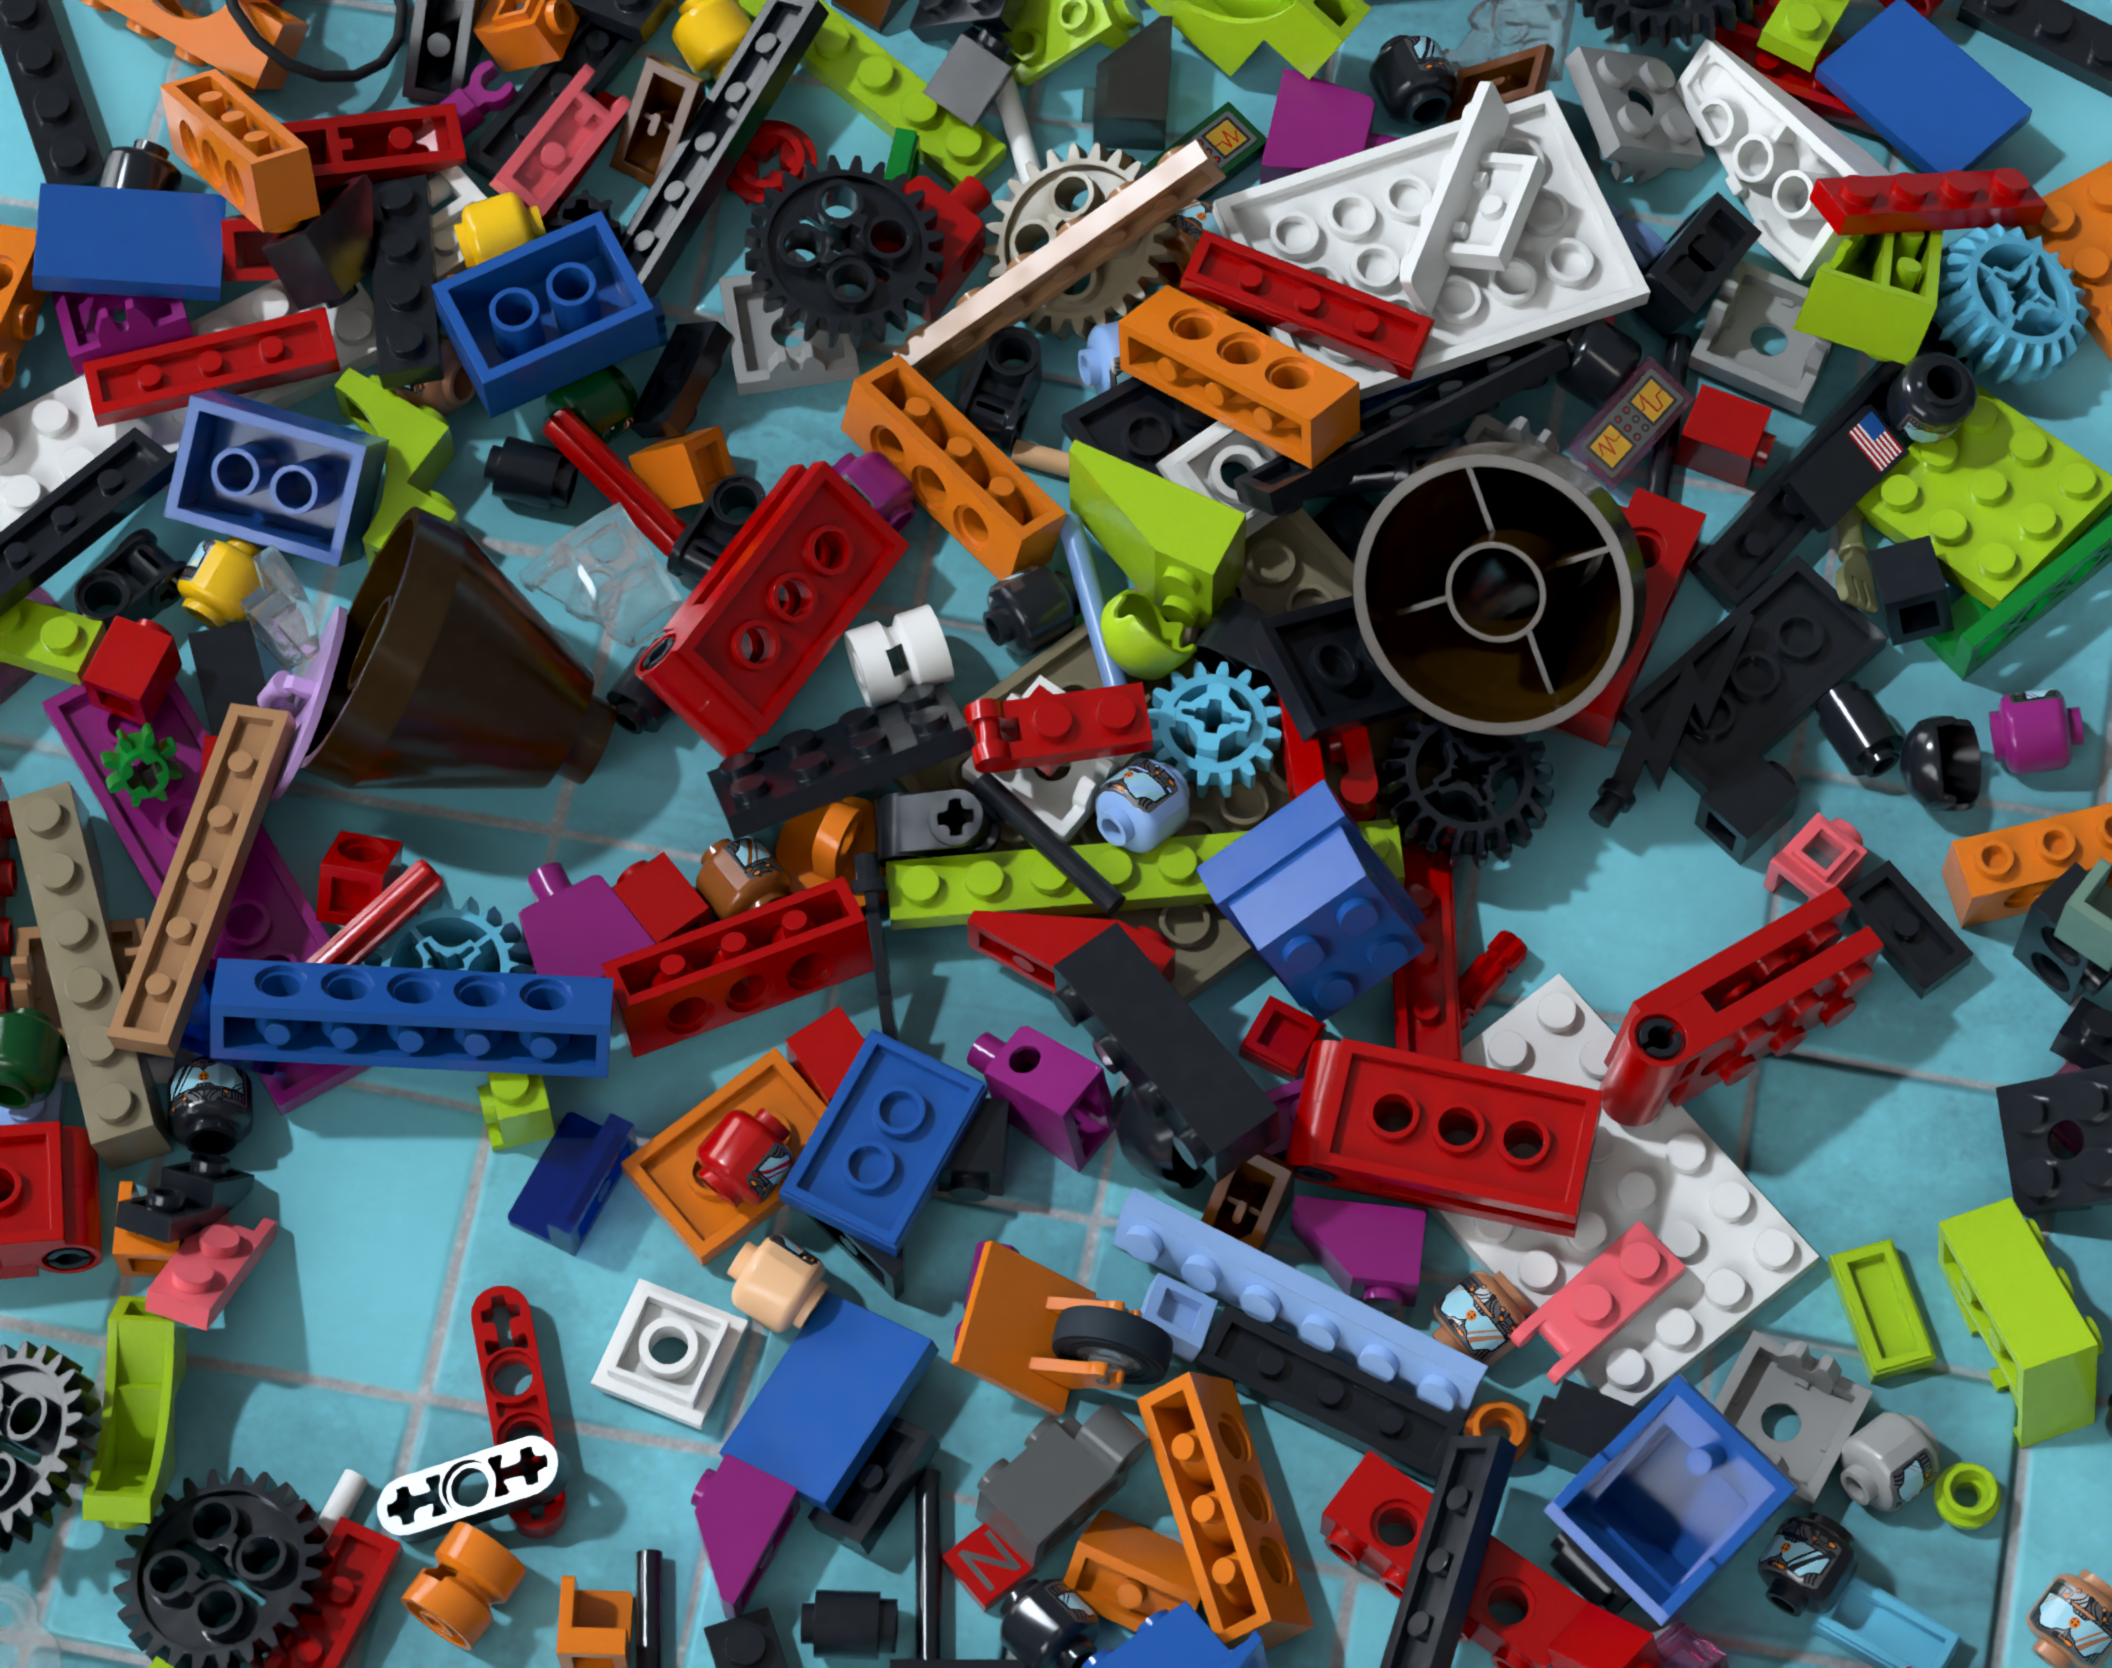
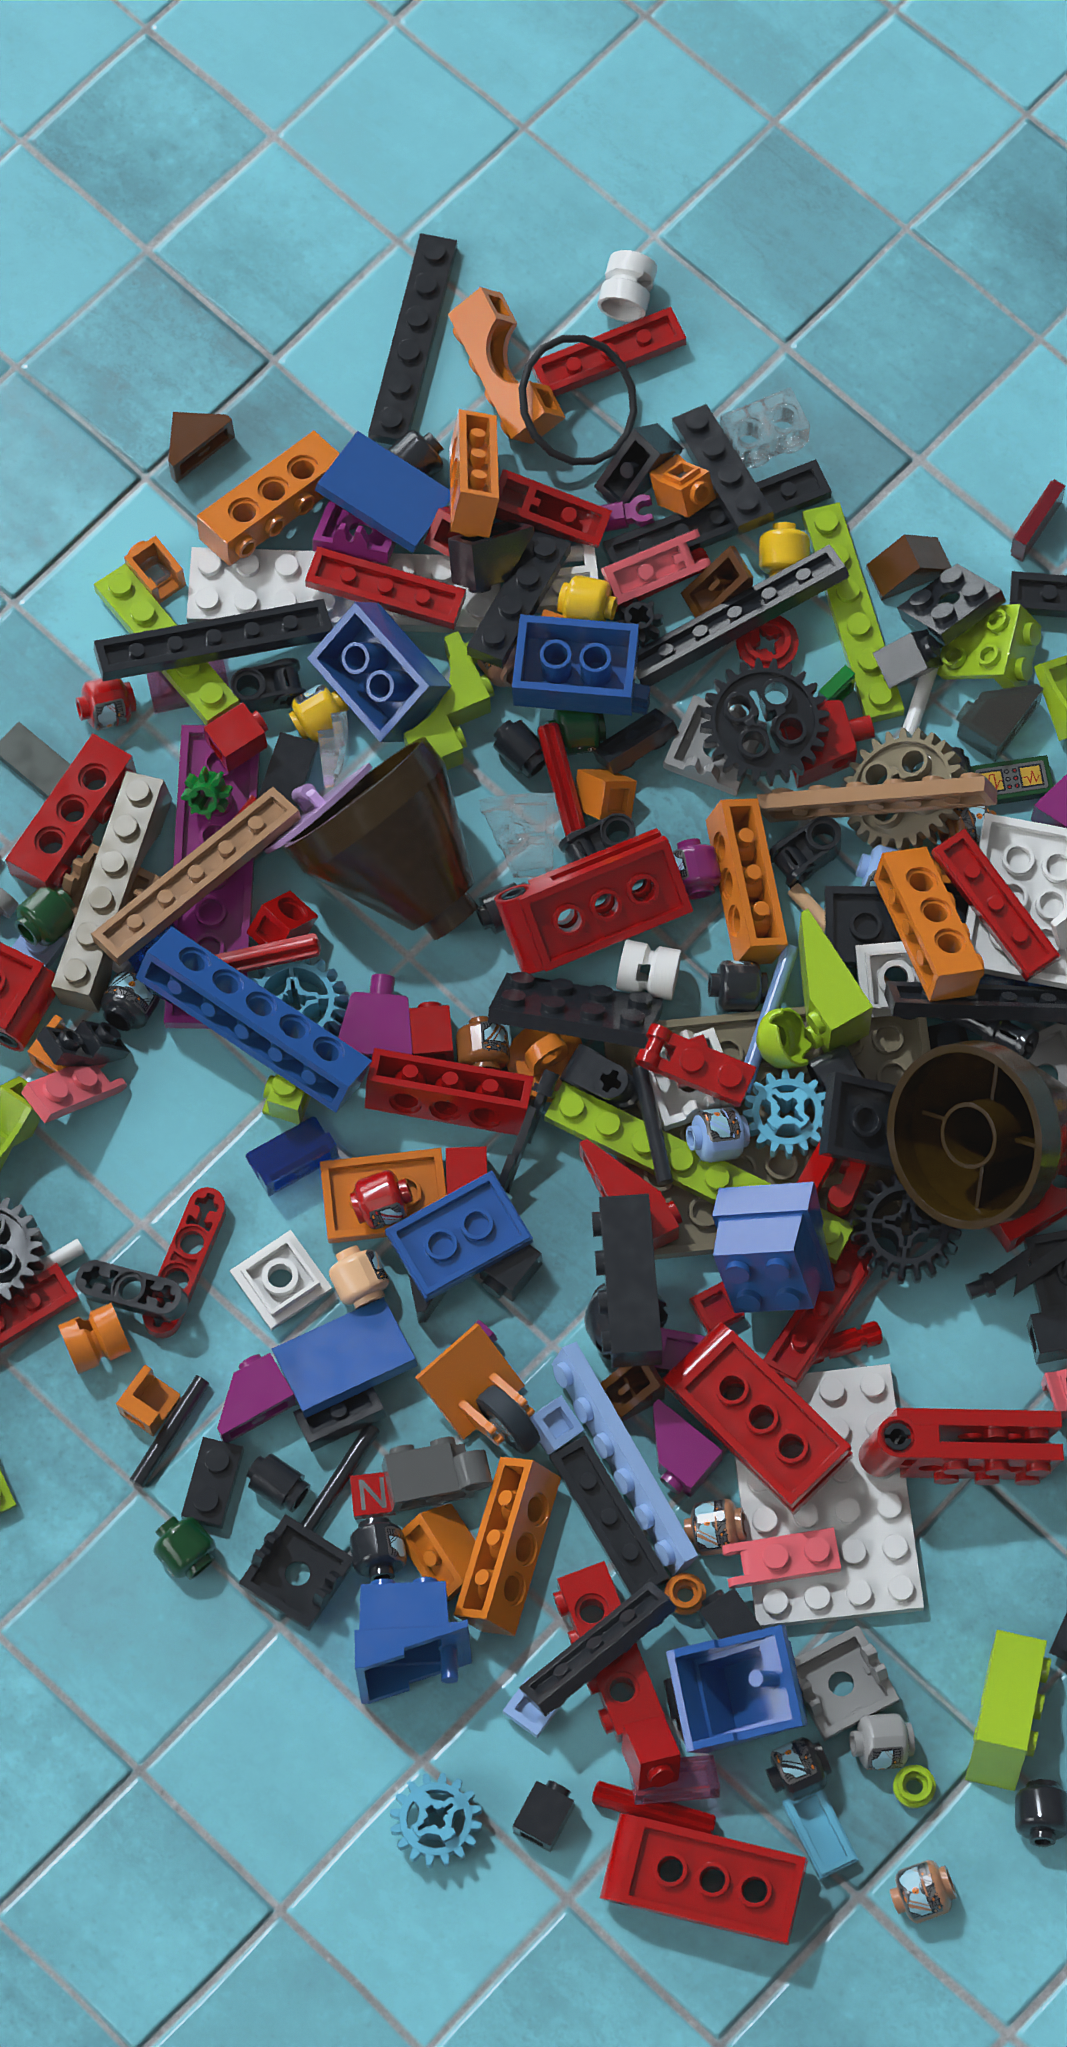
camera: 35 degrees right, 5 degrees up
(1050, 1090) = (565, 1260): magenta torso -> none
(1881, 1310) = (939, 1657): lime tile -> none

